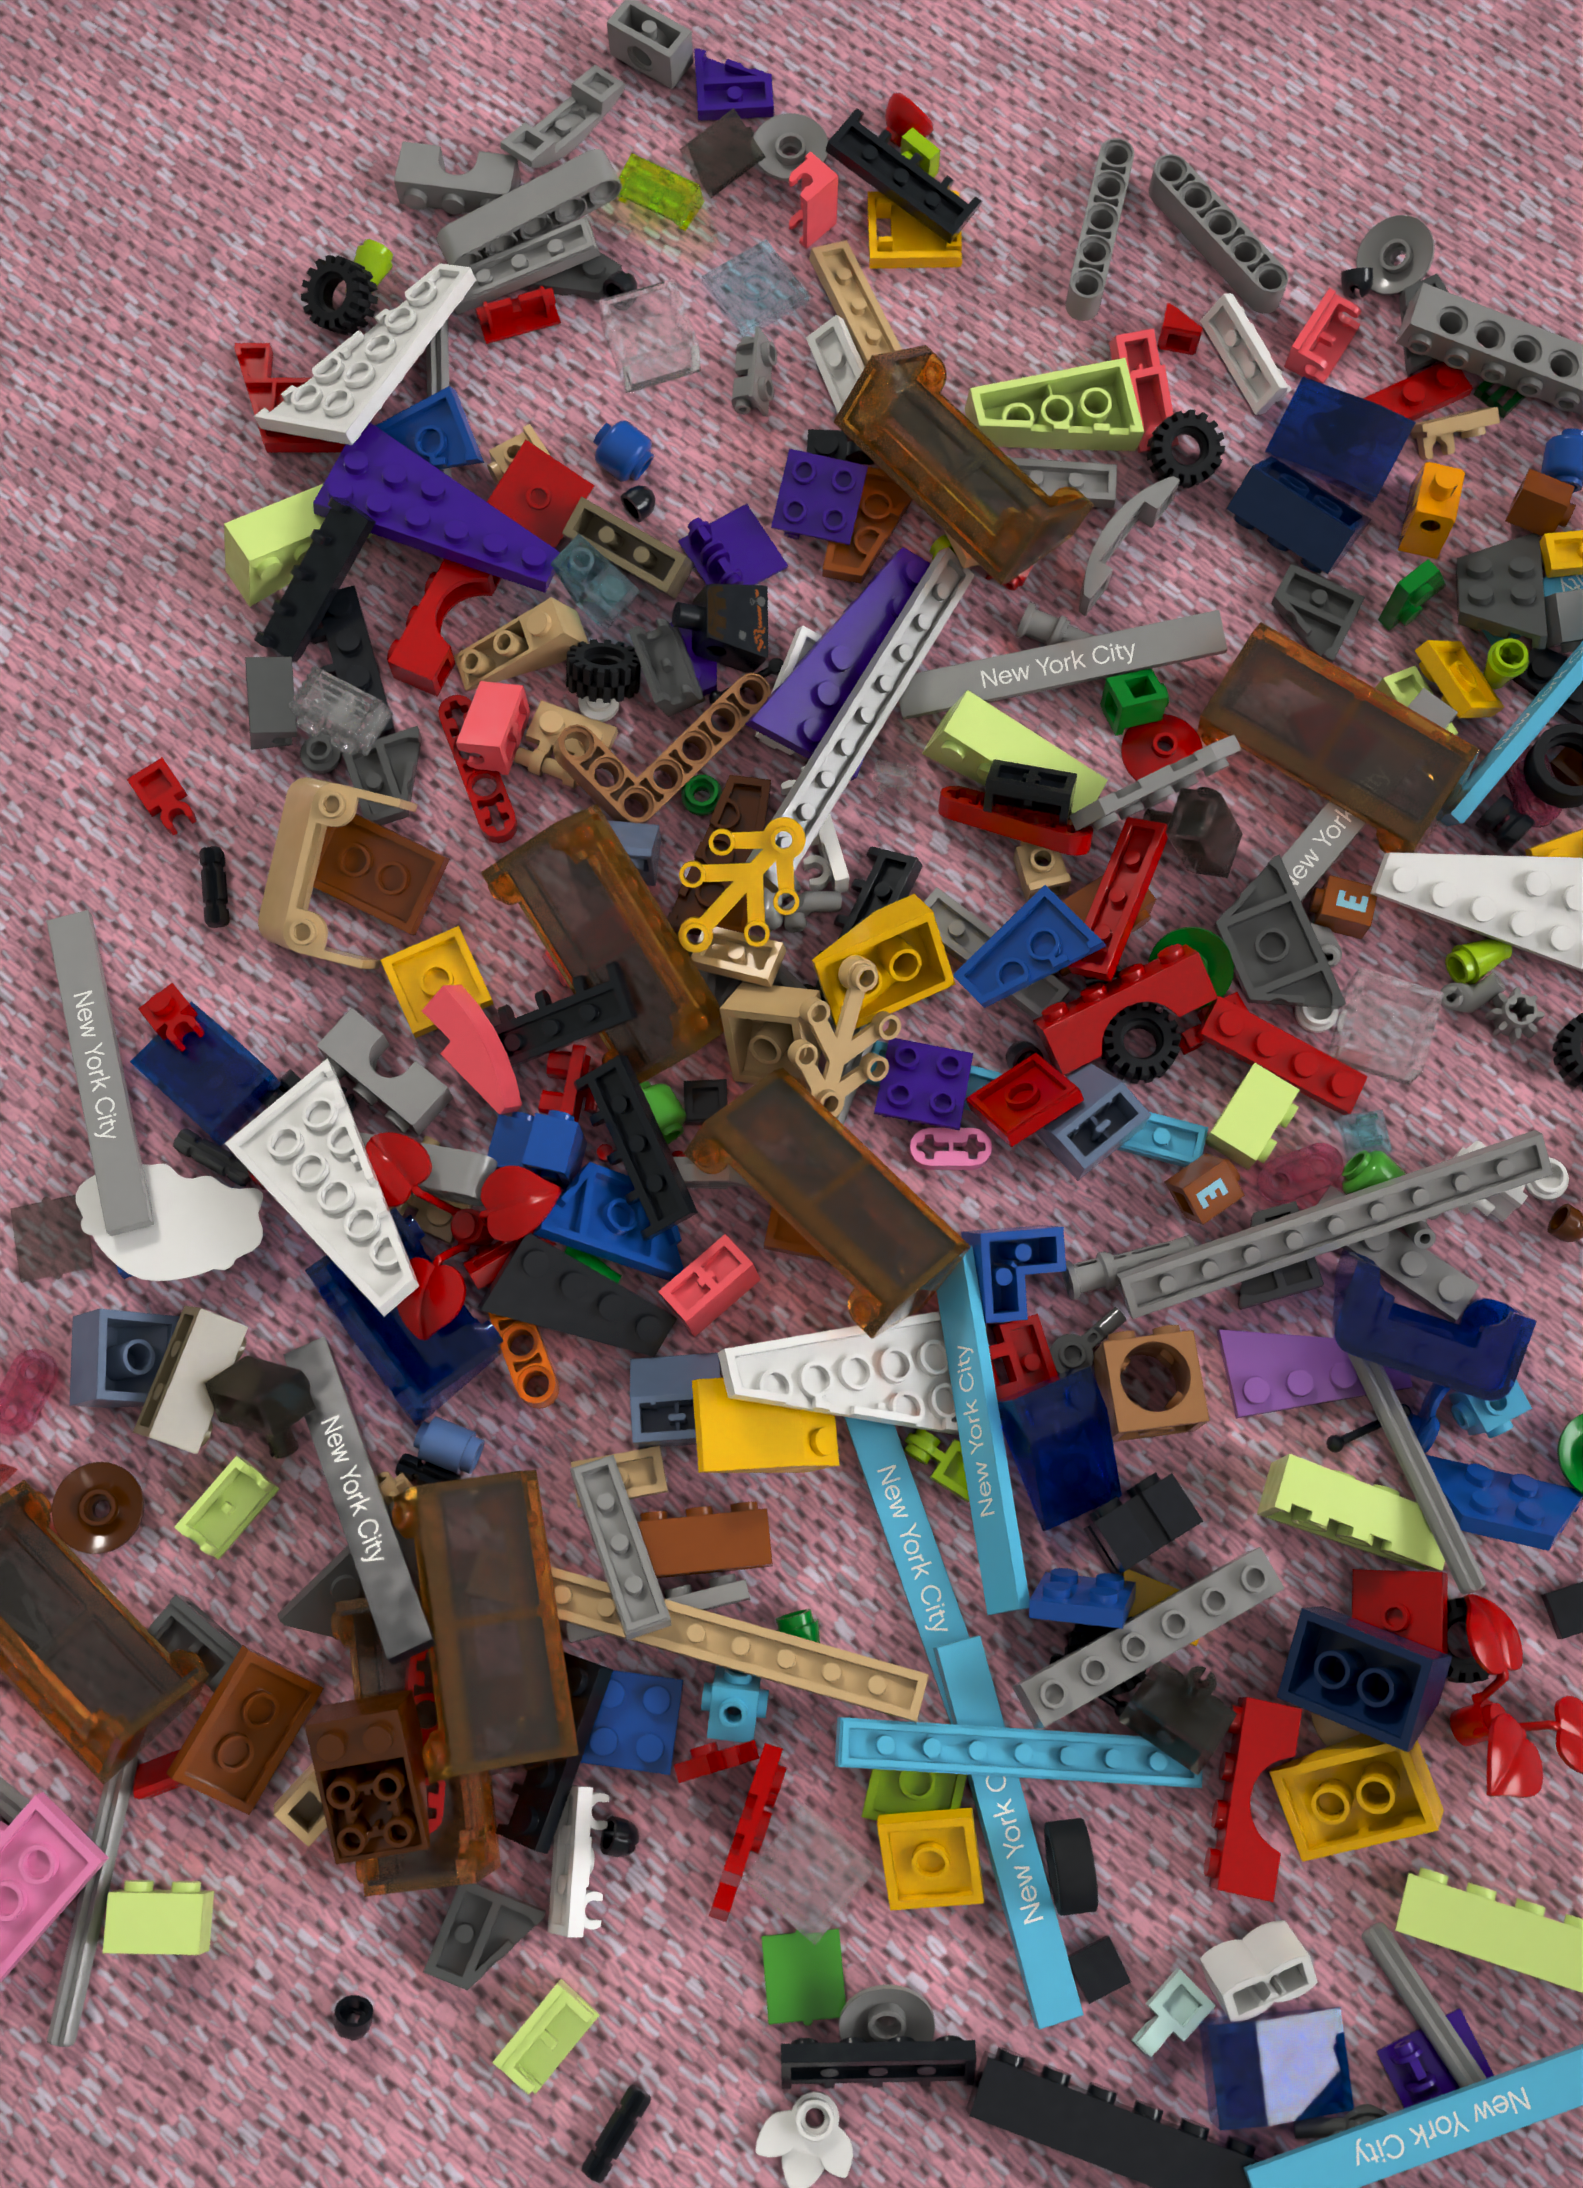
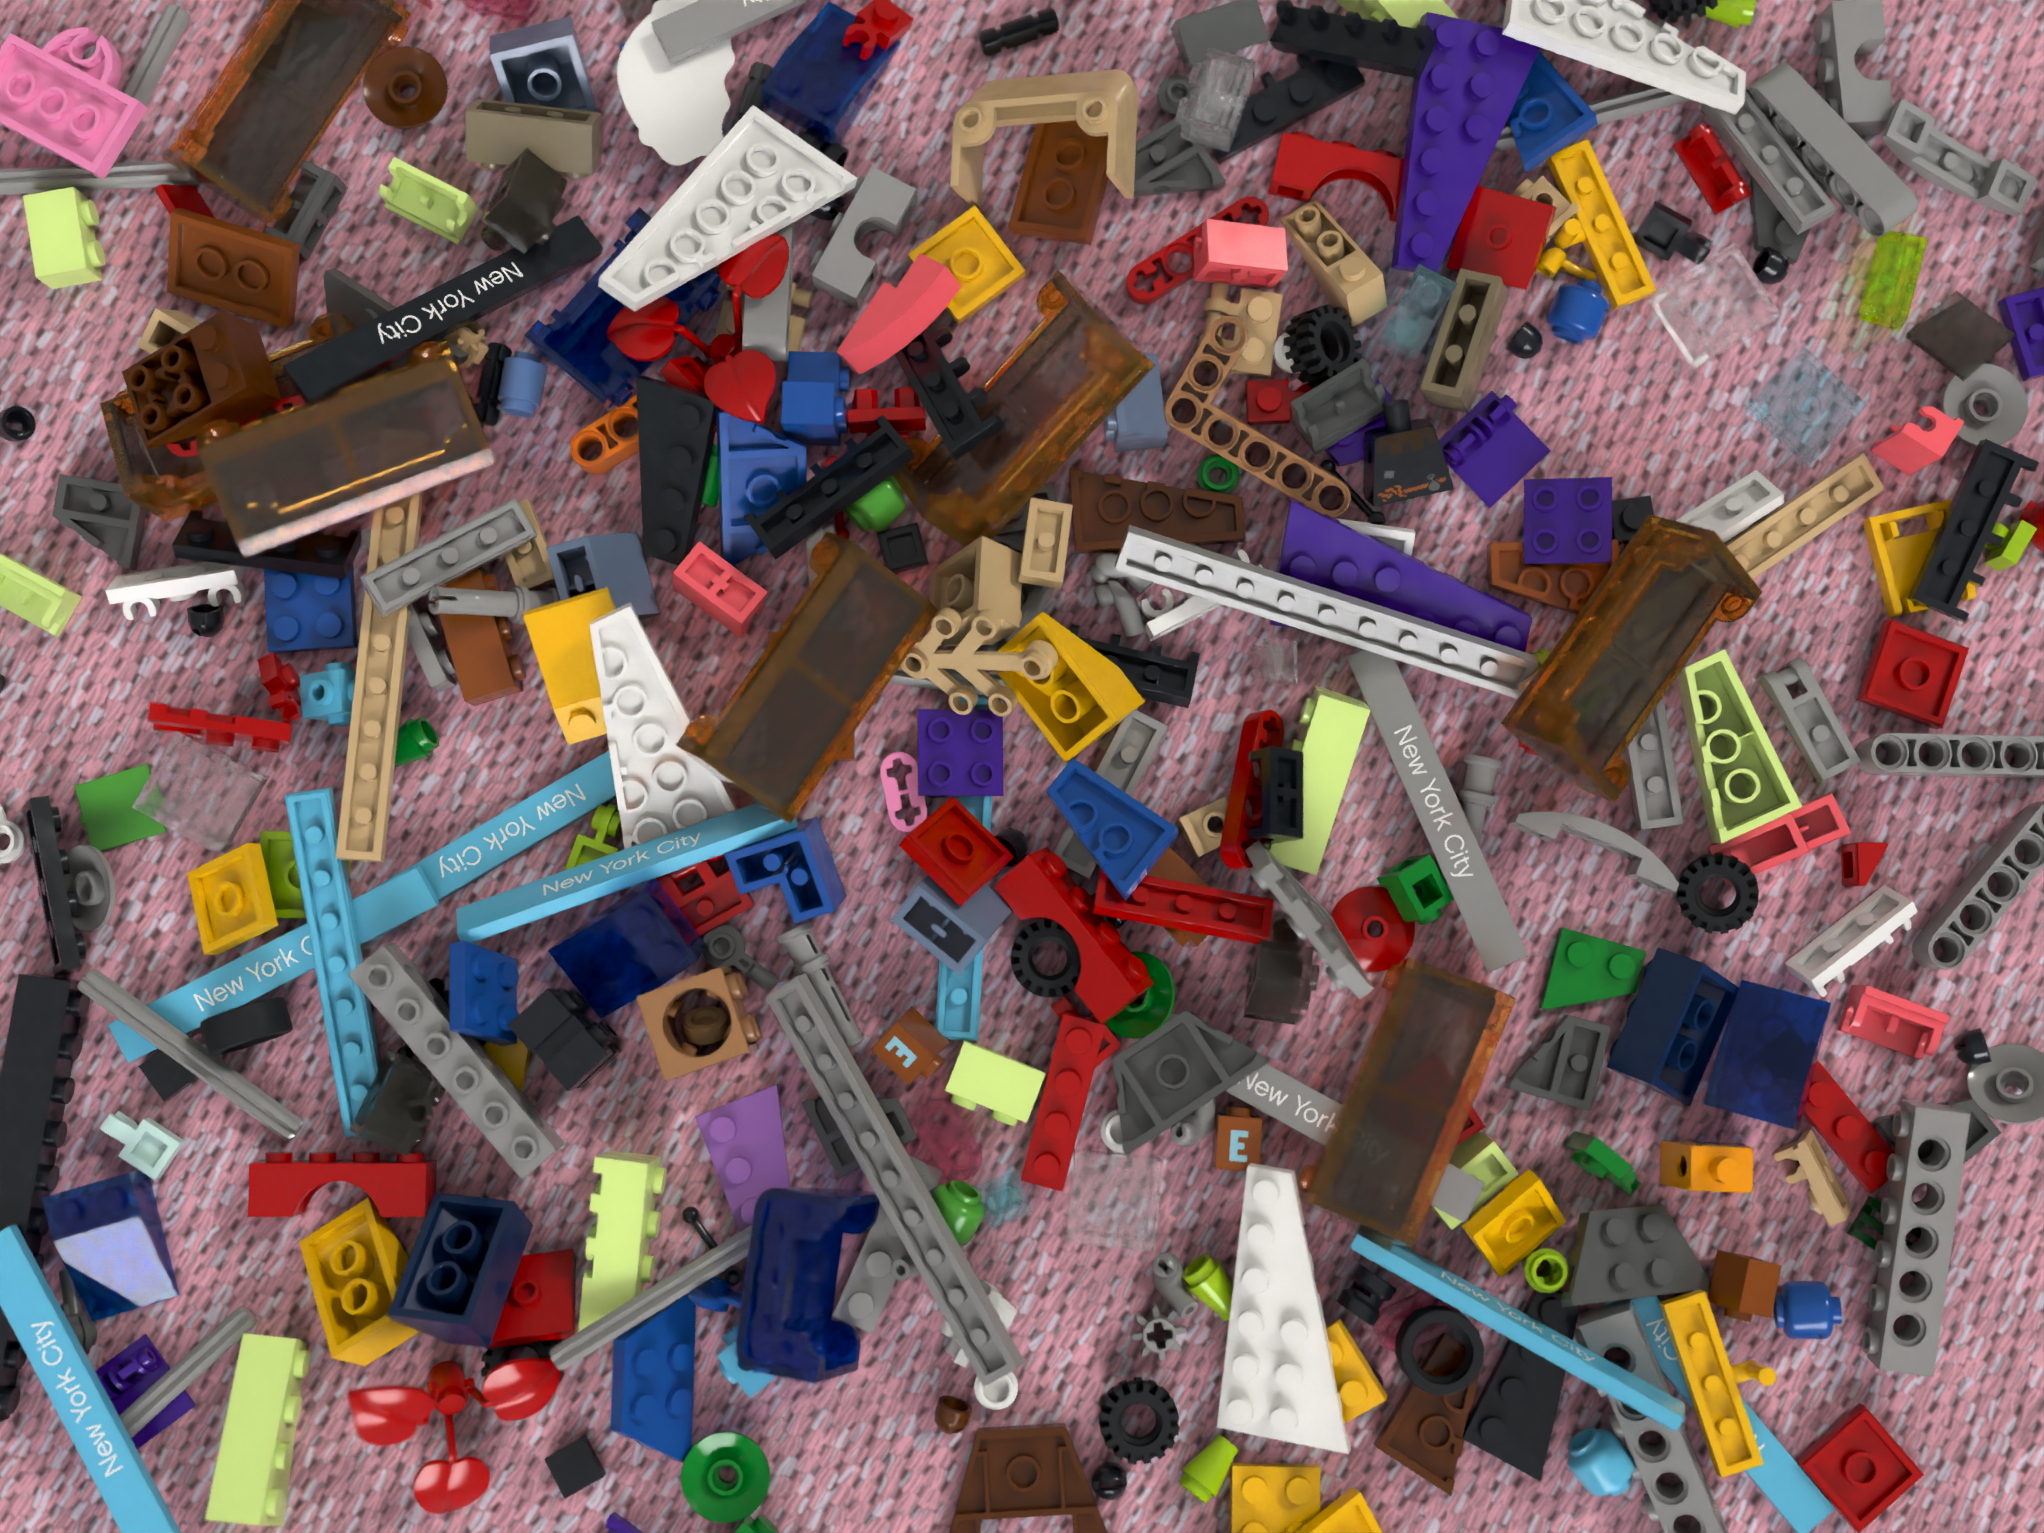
camera: 75 degrees right, 10 degrees up
(548, 415) = (1599, 226): none -> yellow plate
(567, 362) = (1667, 231): none -> black plate
(571, 459) = (1556, 259): none -> yellow hand
(641, 732) = (1270, 401): none -> red plate
(682, 1491) = (489, 602): none -> light grey pin
(746, 879) = (1112, 528): yellow plant -> none
(755, 358) = (1720, 426): light grey hinge -> none
(1017, 255) = (1912, 674): none -> red plate
(1042, 344) = (1810, 720): none -> light grey plate
(1087, 1940) = (190, 1054): none -> light grey axle
(1149, 1386) = (705, 1025): none -> tan tile
(1234, 574) = (1589, 970): none -> green wing
(1258, 1970) = (188, 1212): white brick -> none

